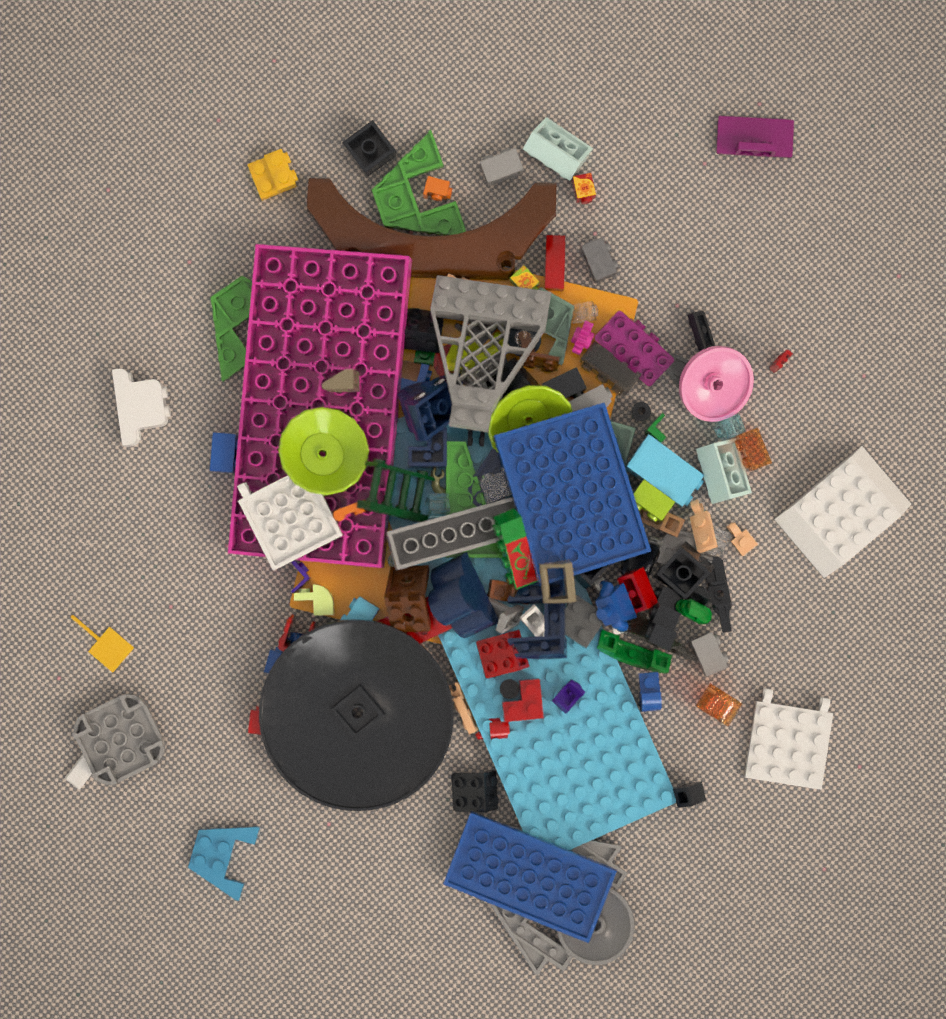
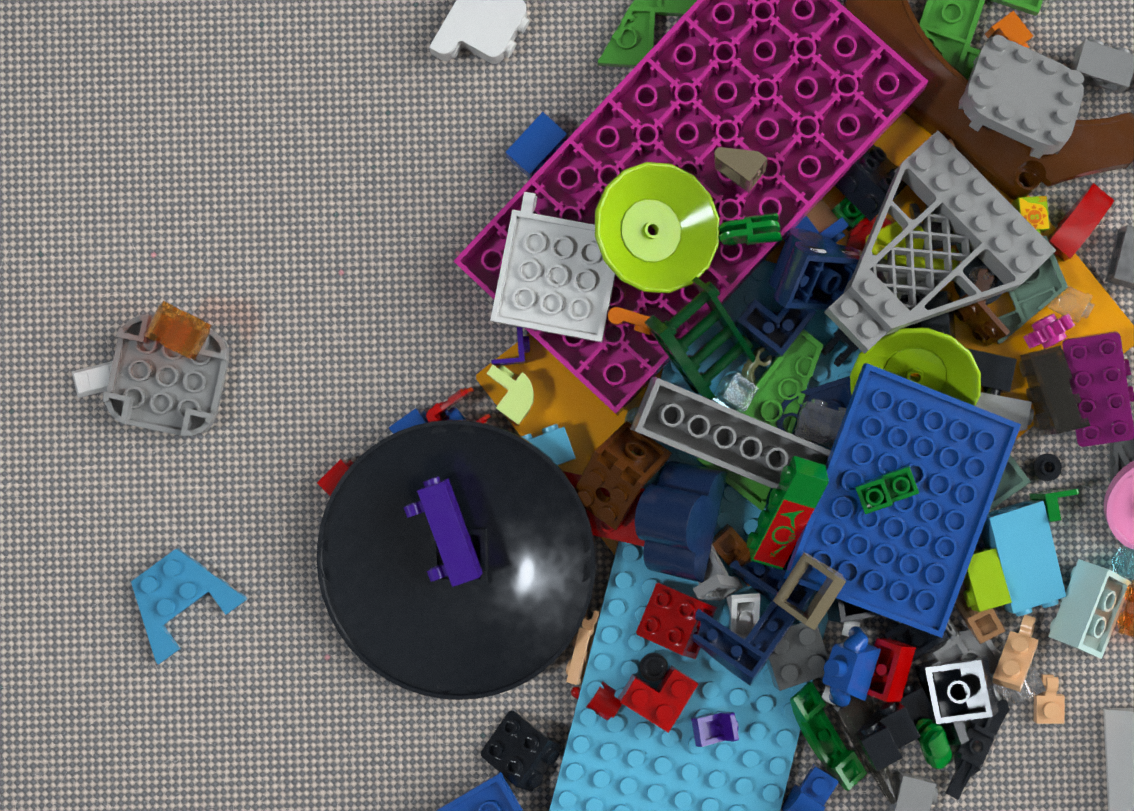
camera: 35 degrees right, 0 degrees up
(106, 709) = (178, 330): none -> clear orange brick
(109, 648) = (236, 266): yellow piece -> none
(340, 702) = (448, 531): none -> dark purple brick
(376, 411) = (751, 230): none -> green arm
(468, 221) = (1023, 96): none -> light grey plate
(557, 495) = (886, 489): none -> green slope

